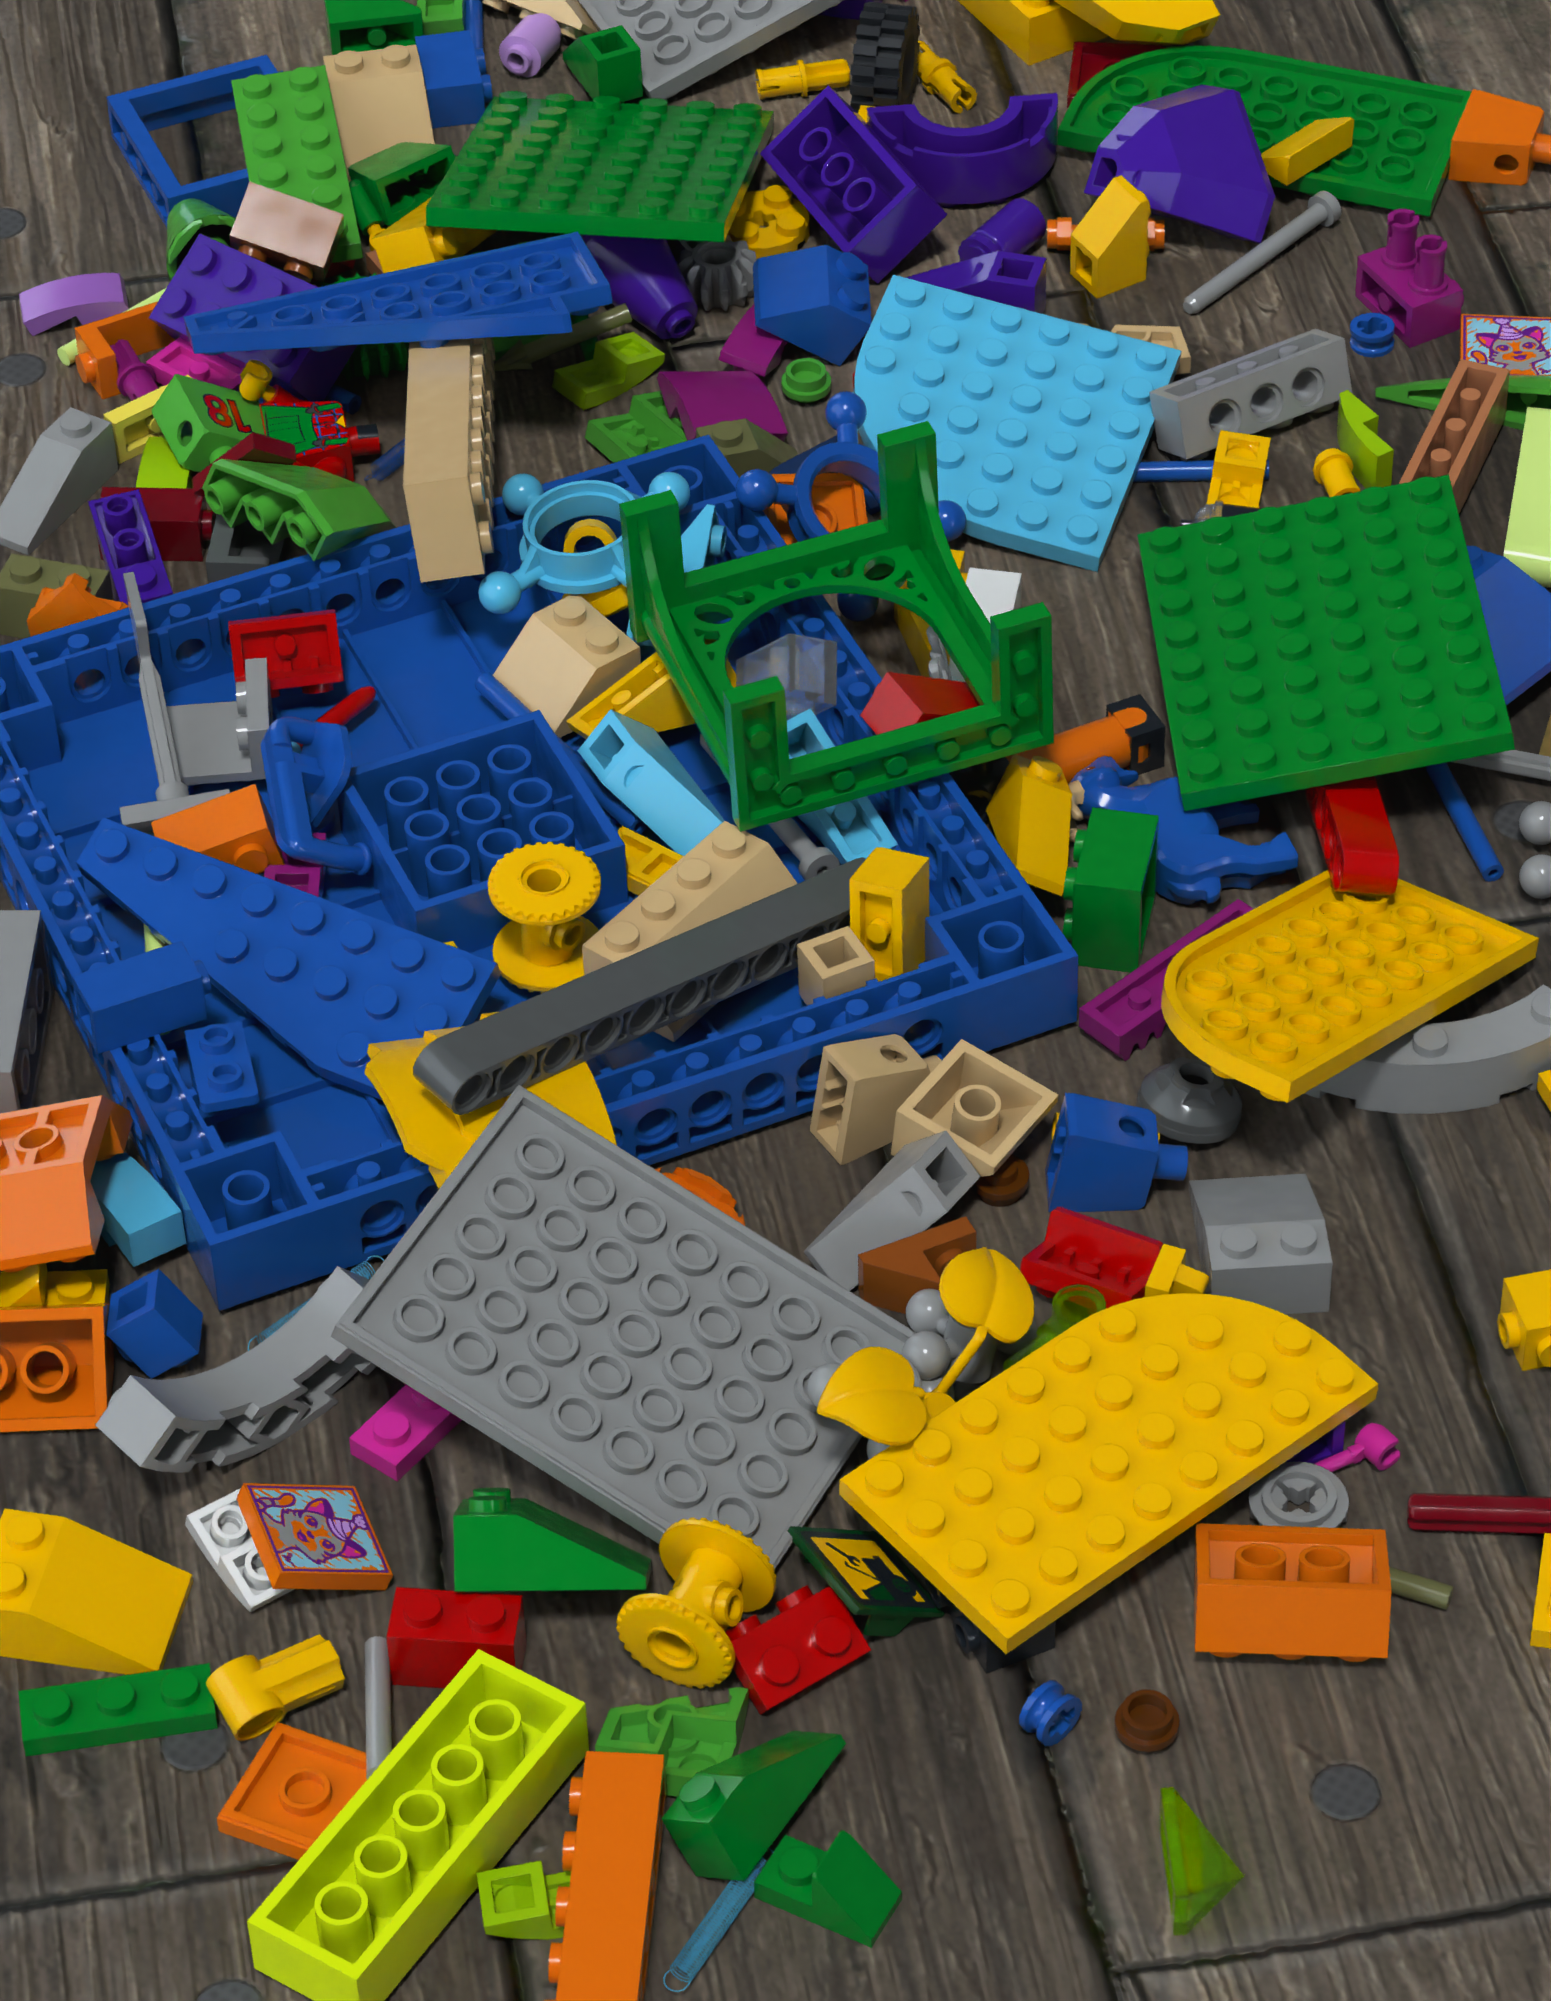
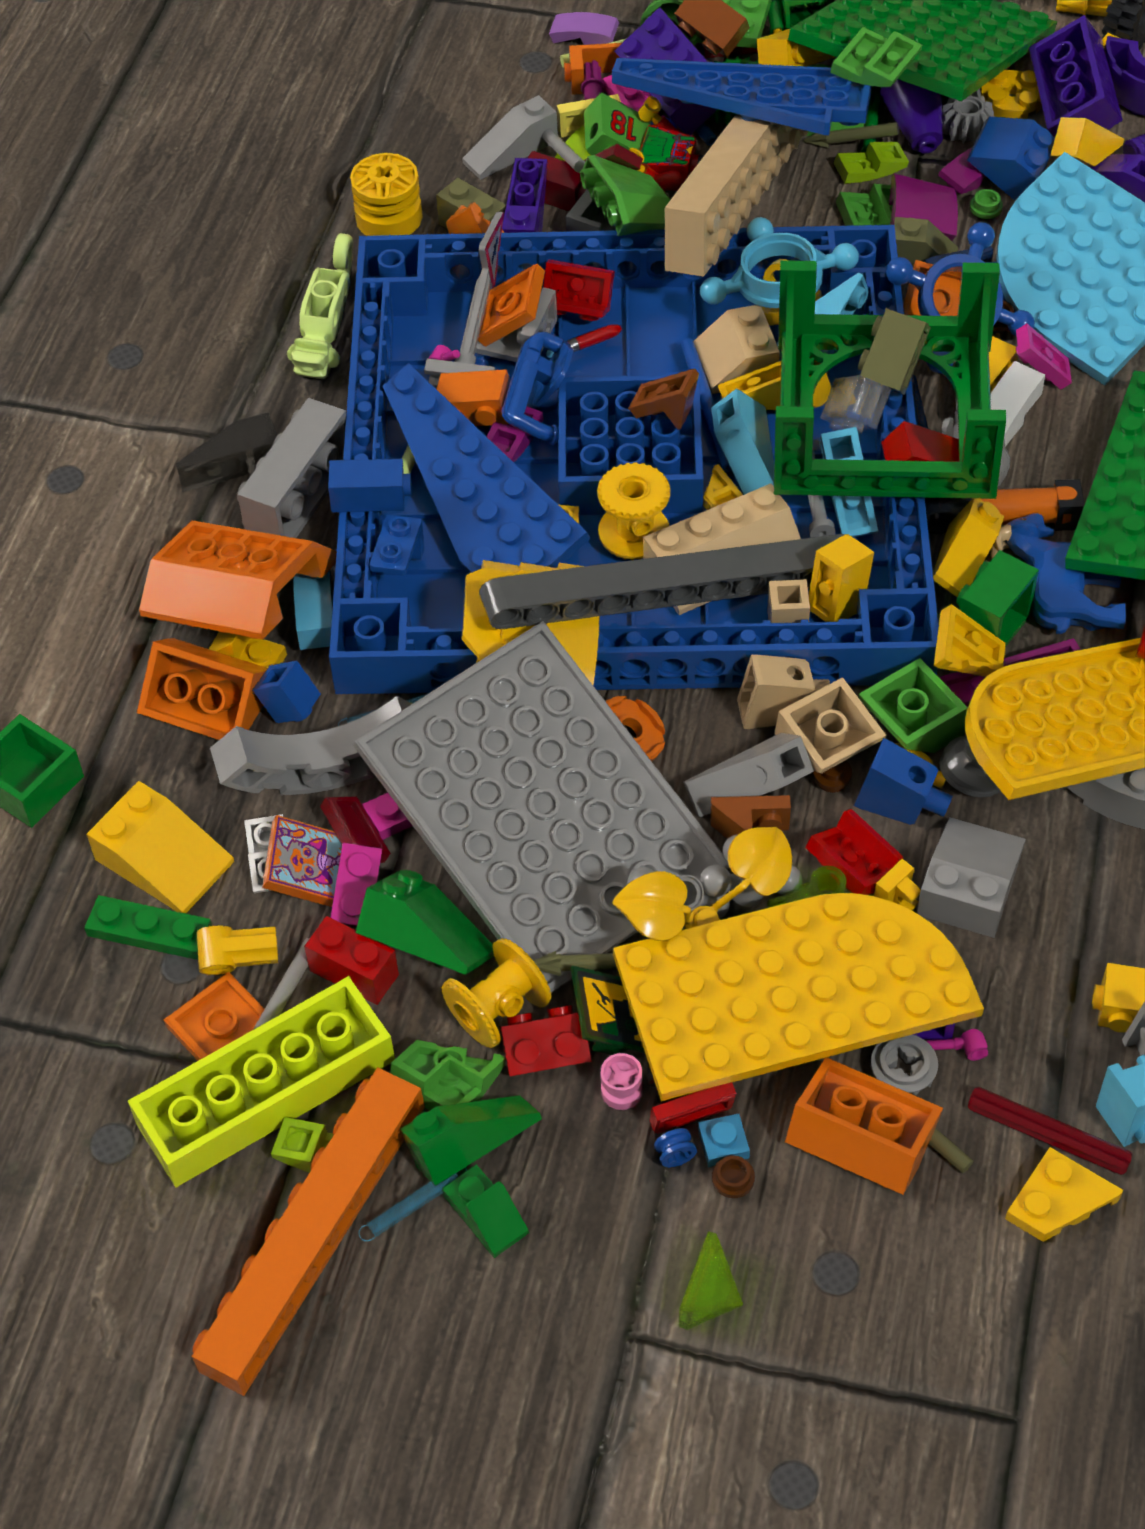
camera: 25 degrees right, 10 degrees up
(130, 796) = (444, 353): none -> dark pink hand
(151, 473) = (563, 150): none -> light grey bar
(210, 697) = (511, 304): none -> orange tile
(359, 1473) = (353, 823): none -> dark red tile
(406, 1535) = (356, 872): none -> dark pink plate
(520, 742) = (668, 394): none -> dark orange slope
(579, 215) = (875, 59): none -> bright green slope
(818, 586) = (894, 350): none -> olive brick
(820, 1516) = (555, 963): none -> olive piece
(909, 252) = (1084, 141): none -> yellow slope
(930, 1657) = (626, 1073): none -> bright pink wheel
(991, 547) = (1043, 356): none -> dark pink plate
(1045, 1654) = (692, 1107): none -> red tile
(1080, 1046) = (917, 708): none -> bright green slope
(1104, 1681) = (723, 1138): none -> dark azure plate
(1110, 945) = (966, 645): none -> yellow wing

